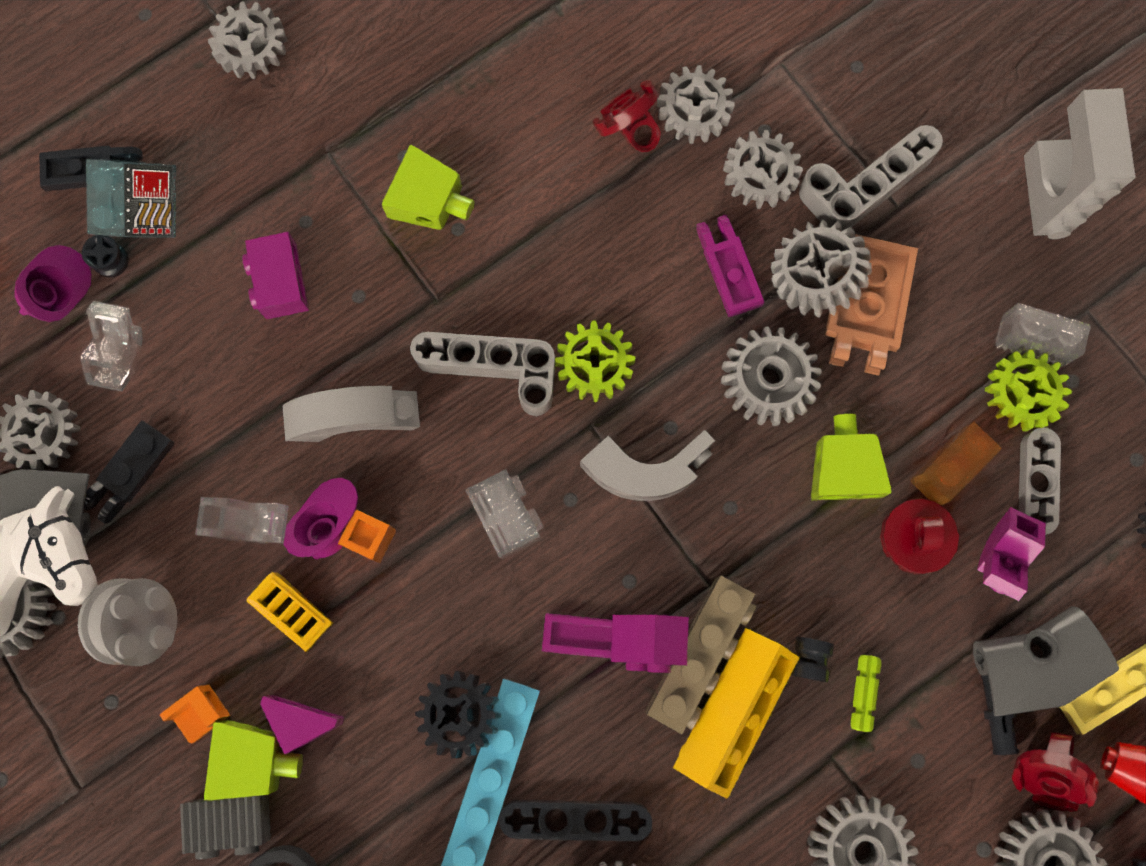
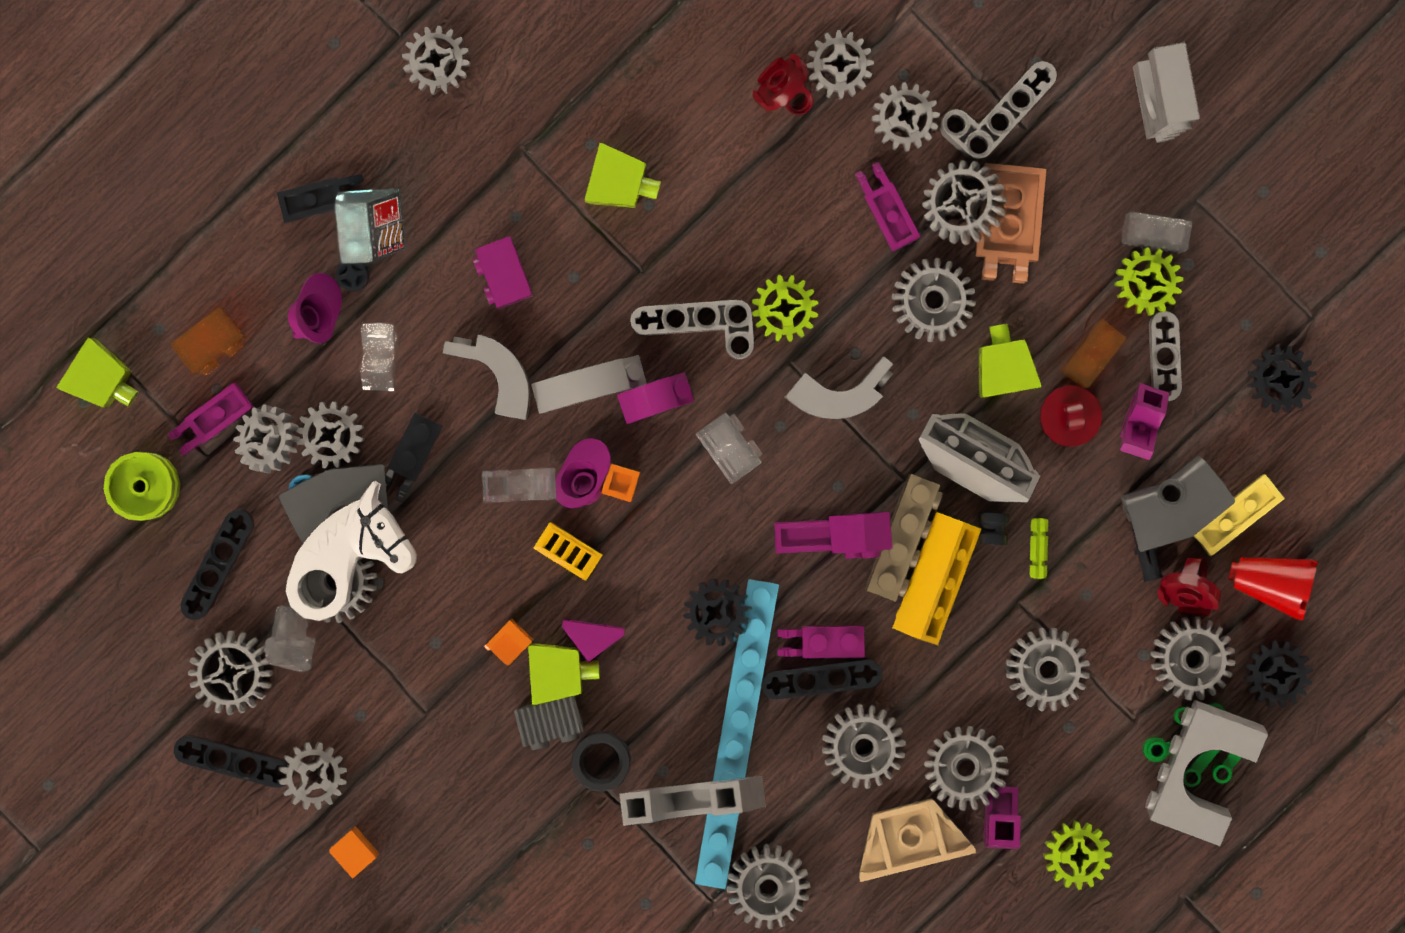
camera: 10 degrees left, 10 degrees up
(127, 622) = (445, 578): light grey wheel -> none
(262, 398) = (511, 377): none -> light grey arch
(424, 440) = (655, 397): none -> magenta brick
(587, 773) = (825, 642): none -> magenta hinge
(805, 571) = (978, 458): none -> light grey wedge

